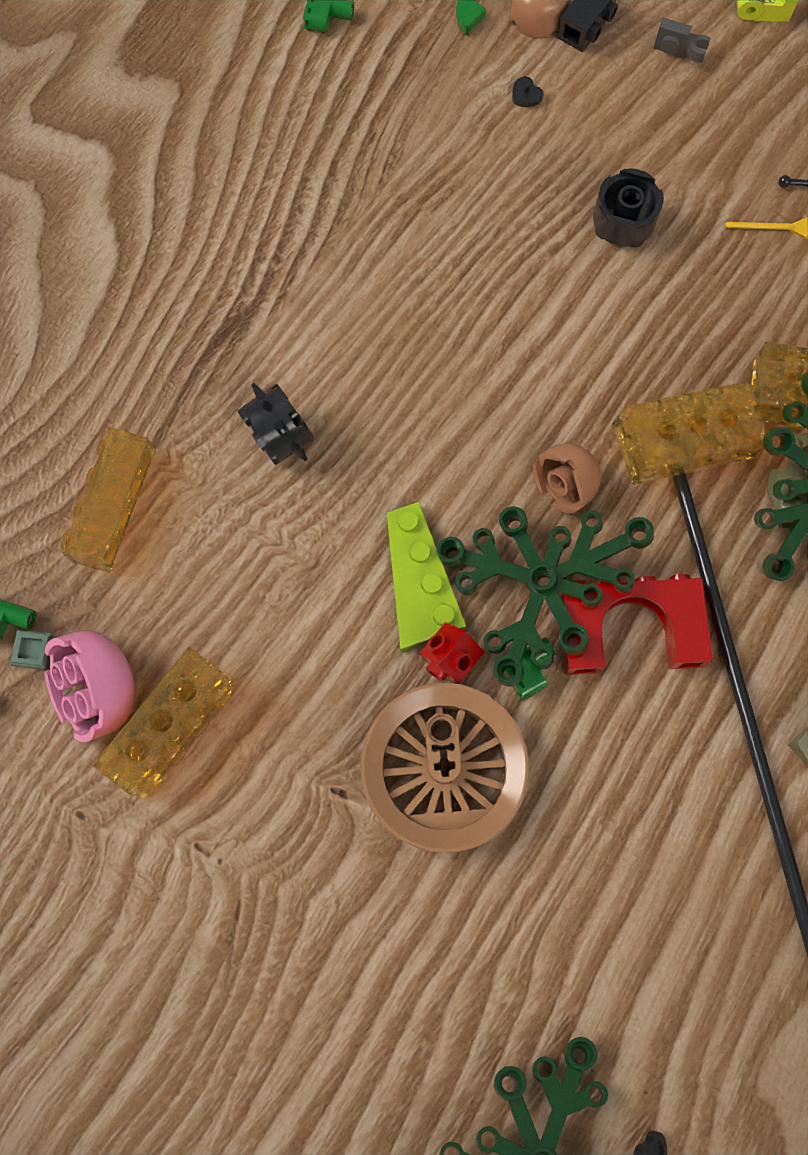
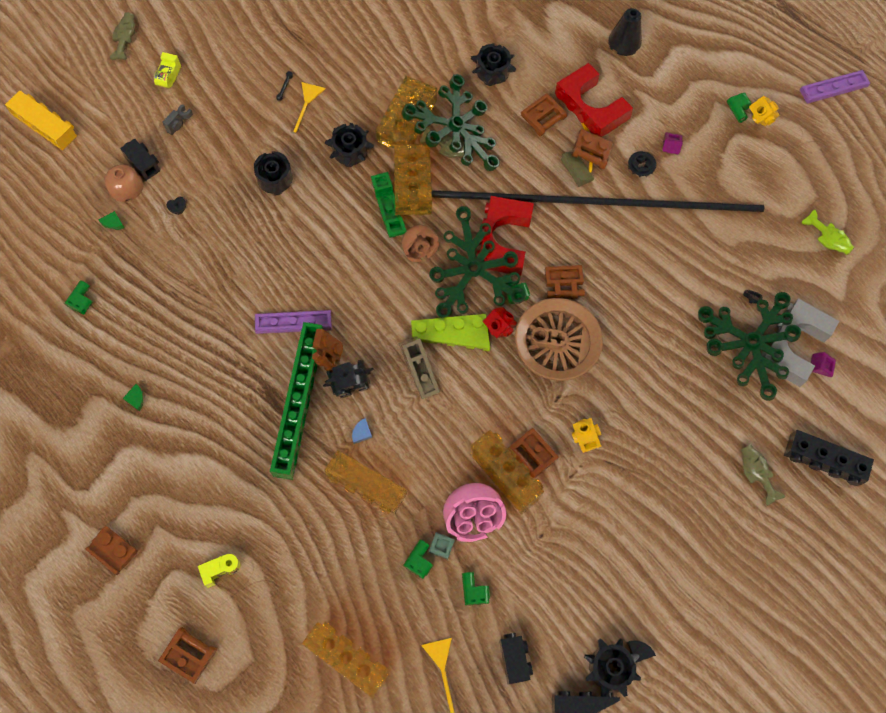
camera: 80 degrees left, 5 degrees down
(185, 134) = (135, 397): none -> green tile
(201, 474) = (361, 432): none -> medium blue tile
(224, 358) = (296, 406): none -> green brick
(229, 772) = (538, 451): none -> dark orange plate
(270, 857) = (586, 434): none -> yellow brick
(329, 378) = (328, 350): none -> dark orange plate
(335, 534) = (419, 367): none -> dark tan slope
(369, 320) = (291, 321): none -> medium lavender tile
(582, 754) = (564, 276): none -> dark orange plate
(595, 426) = (386, 201): none -> green slope
(725, 311) = (349, 144): none -> black brick

